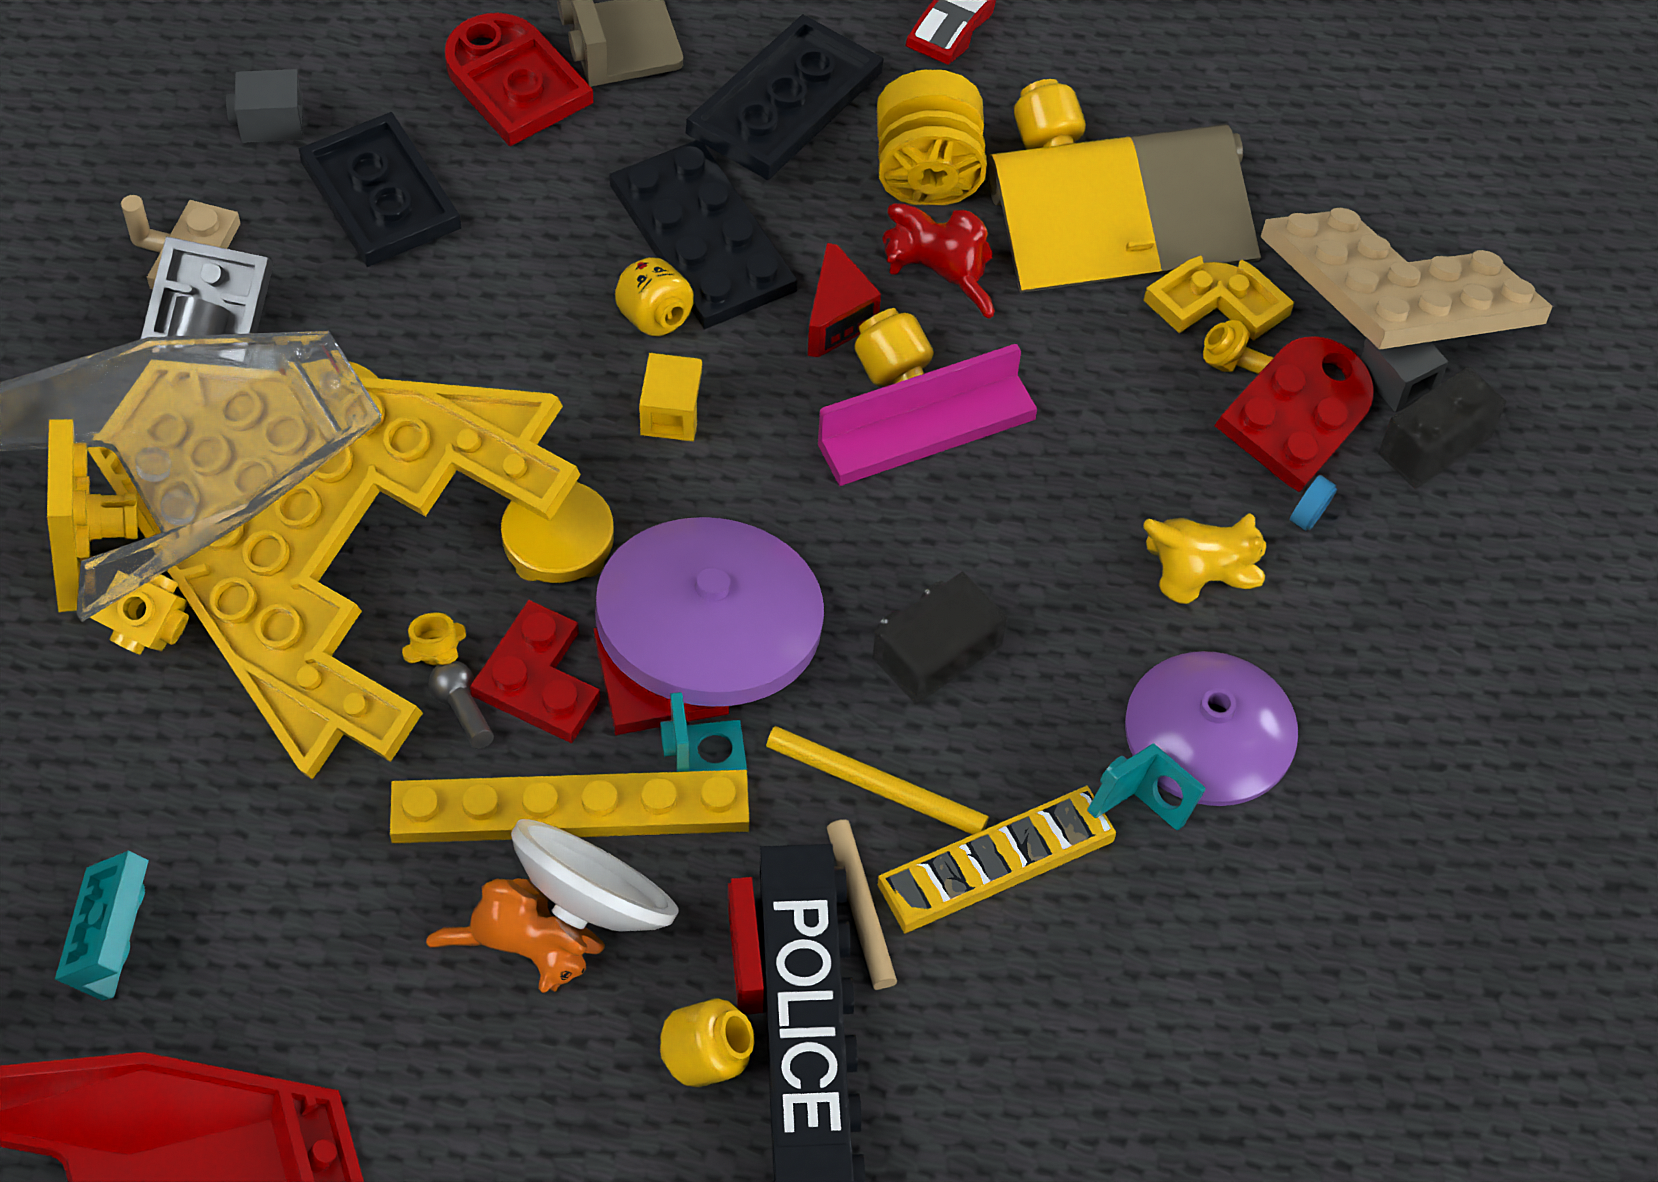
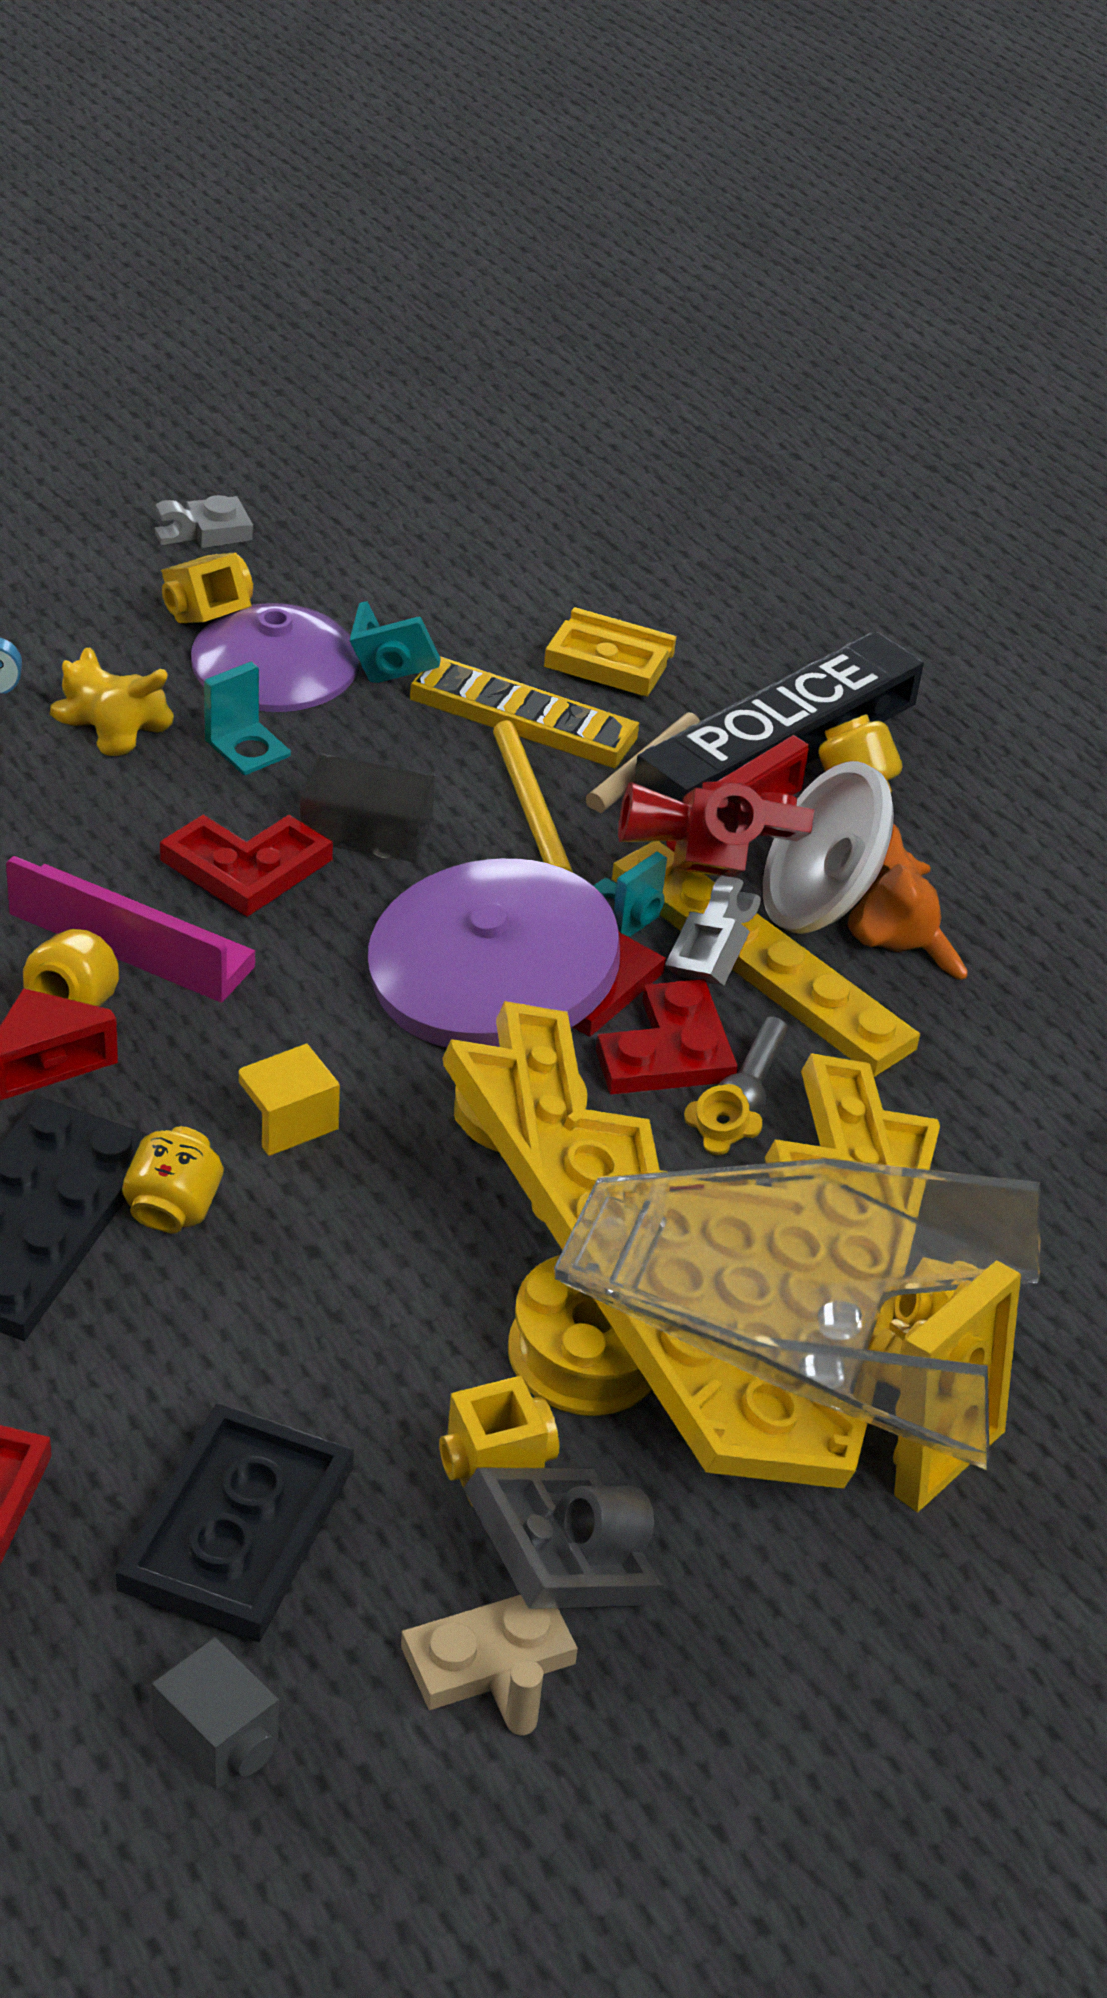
camera: 130 degrees left, 15 degrees down
(295, 302) = (497, 1429): none -> yellow brick
(595, 752) = (714, 939): none -> light grey plate
(676, 798) = (711, 823): none -> red brick
(938, 518) = (242, 871): none -> red plate
(1022, 979) = (610, 651): none -> yellow plate
(1127, 627) = (233, 717): none -> teal bracket
(1315, 698) = (207, 587): none -> yellow brick
(1451, 800) = (209, 521): none -> light grey plate

